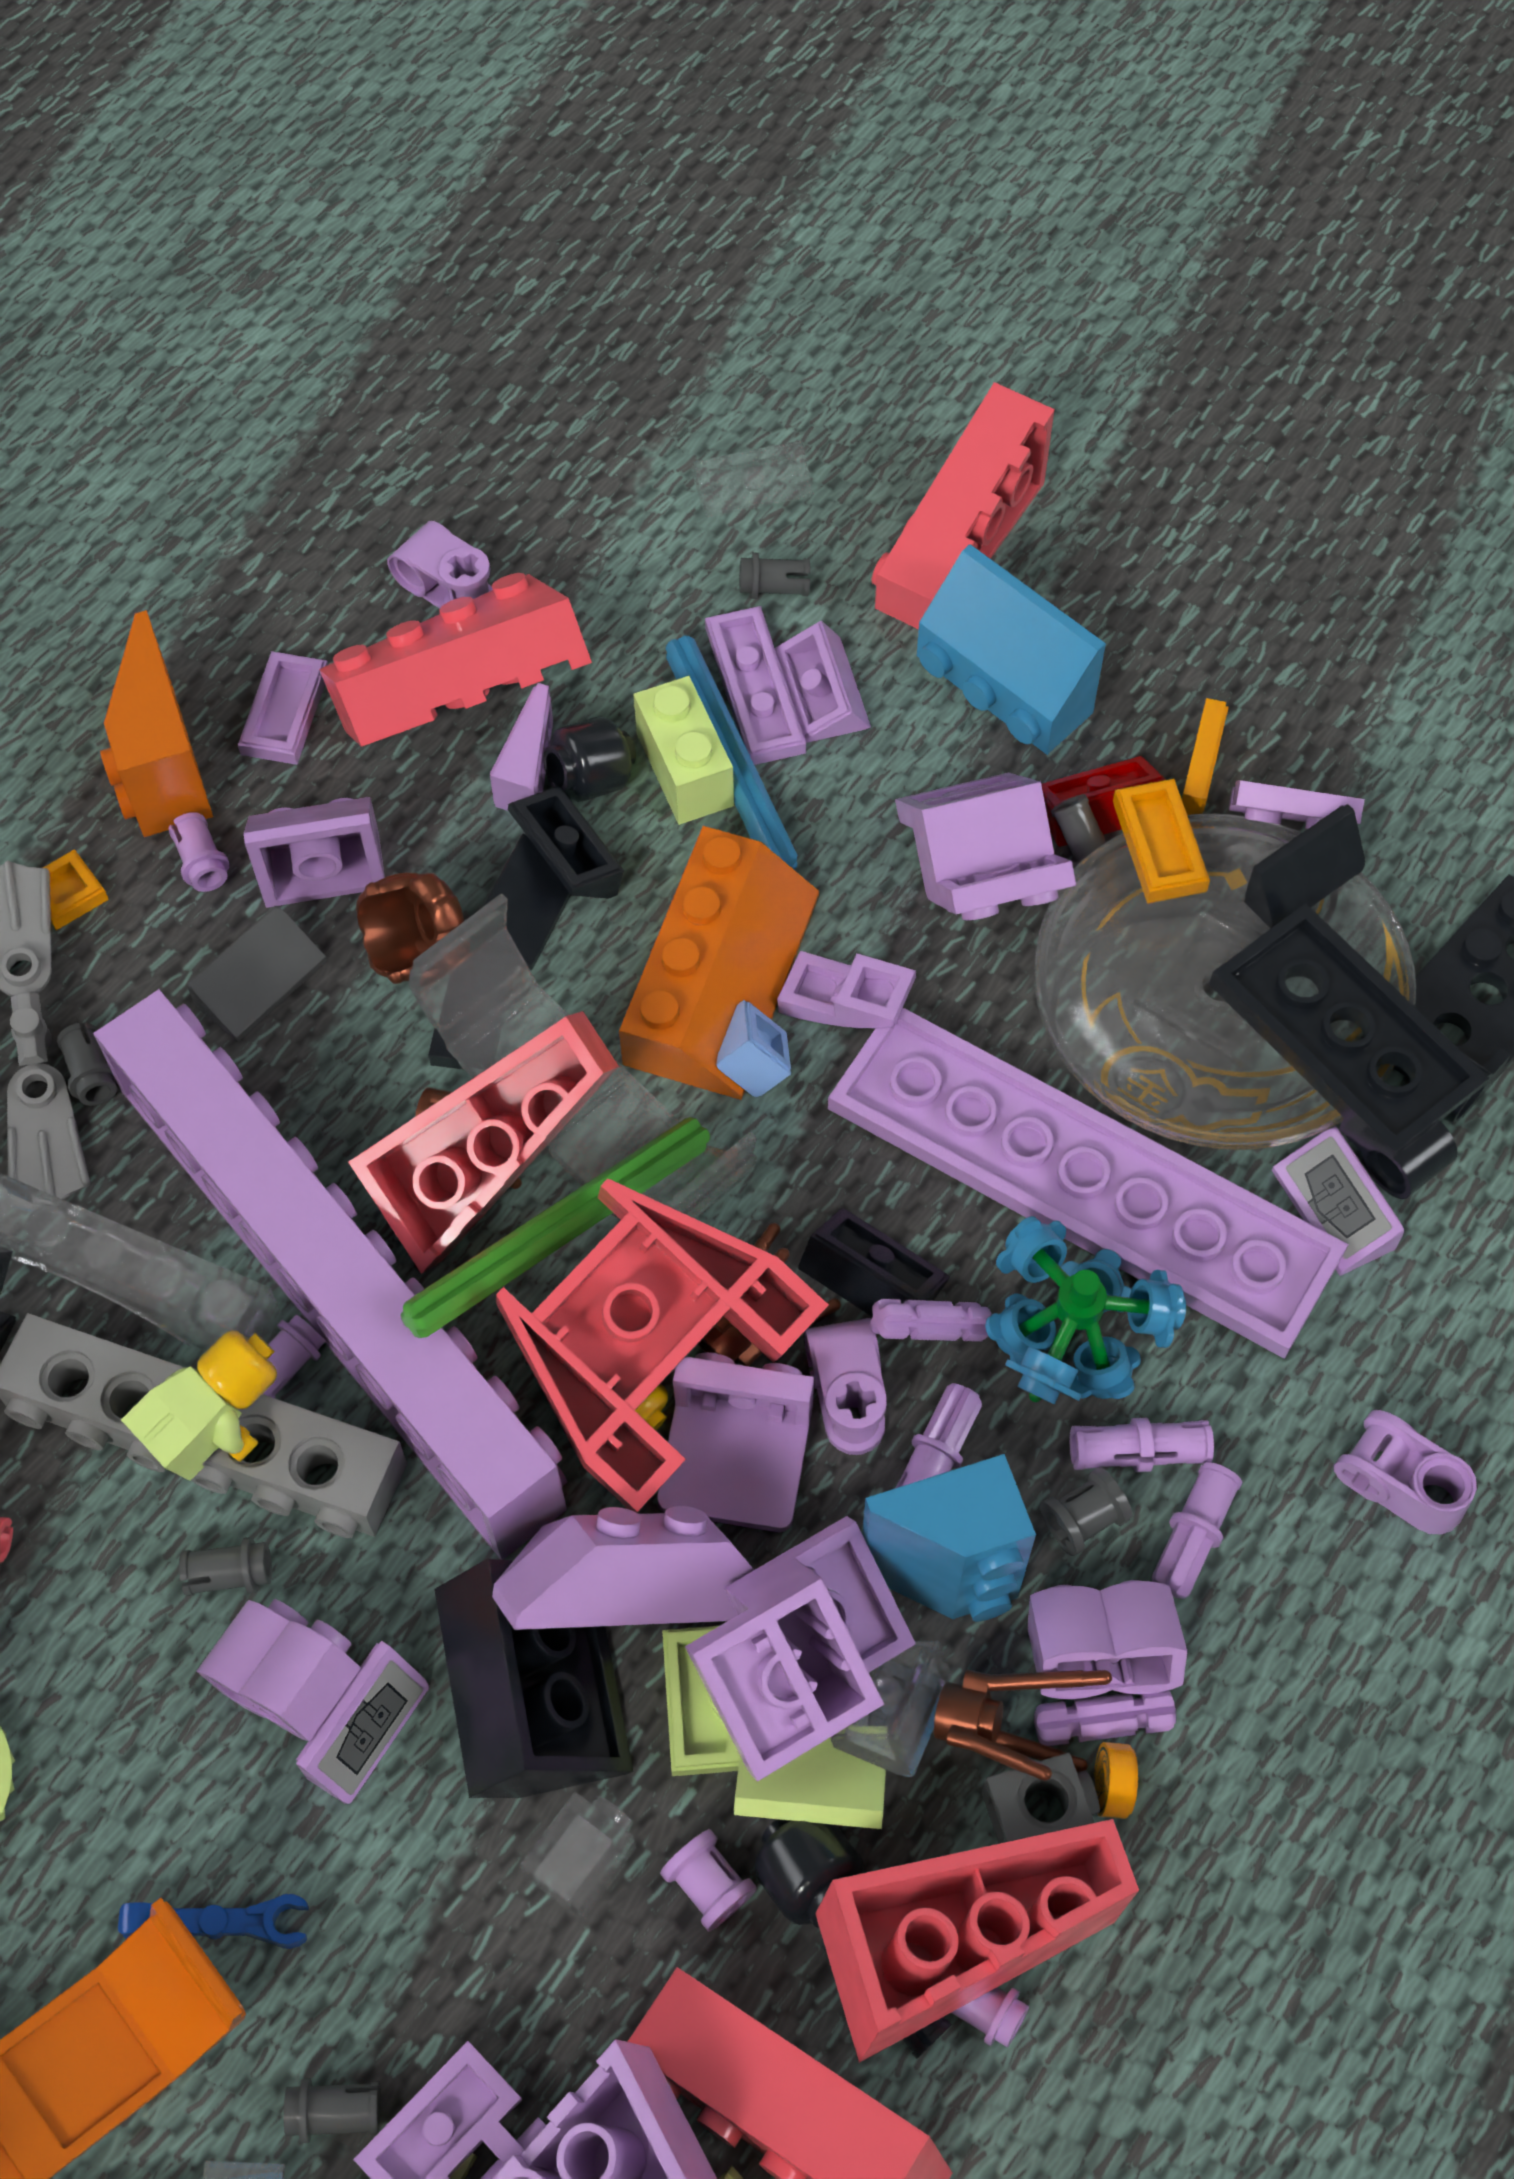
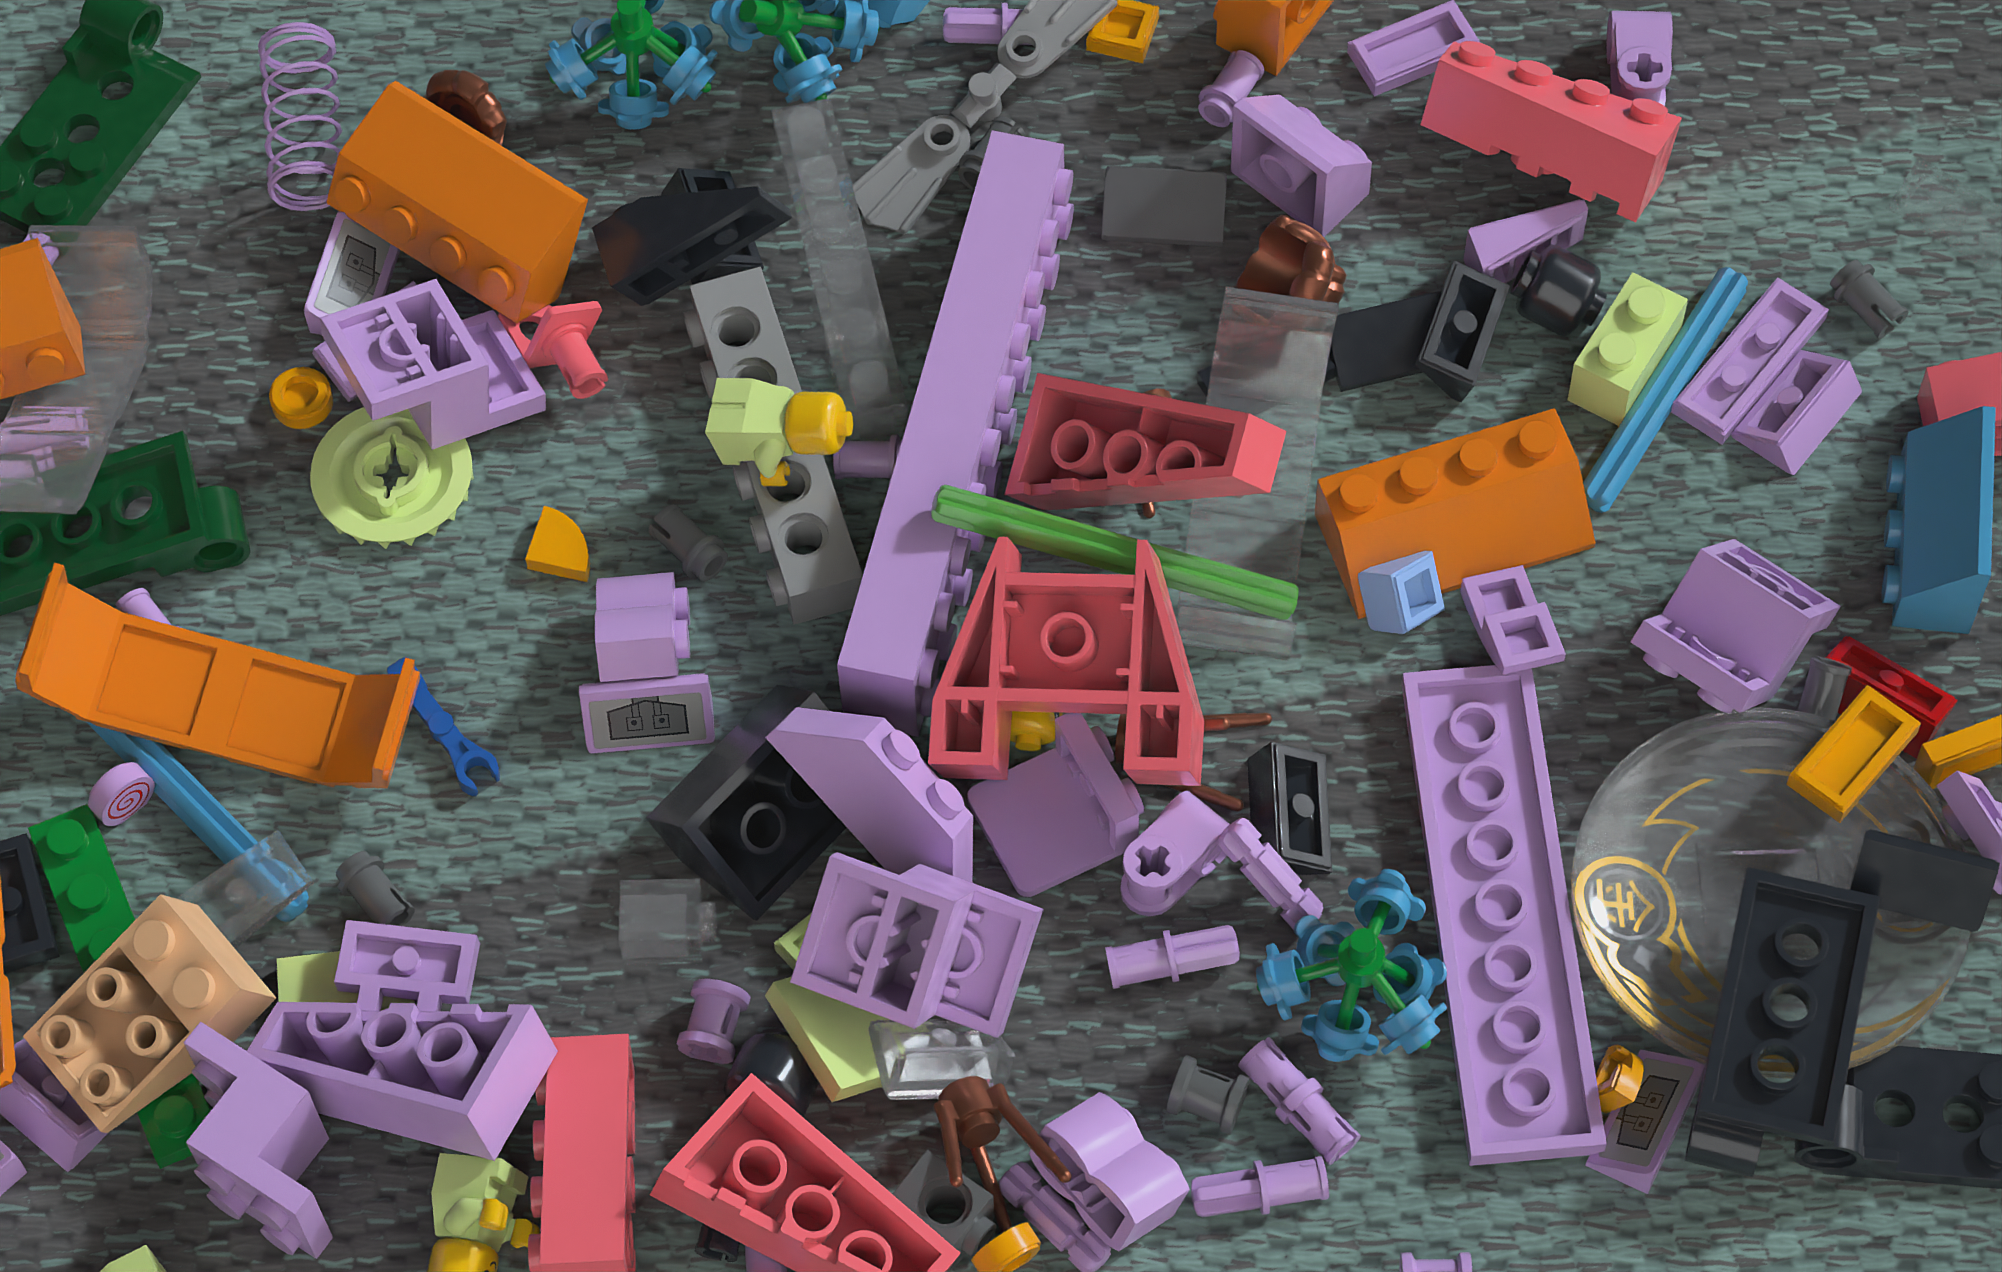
camera: 55 degrees right, 0 degrees up
(128, 1683) = (558, 547): none -> light orange tile
(953, 1539) = (1088, 994): dark azure slope -> none
(1296, 1193) = (1618, 1078): none -> light orange tile

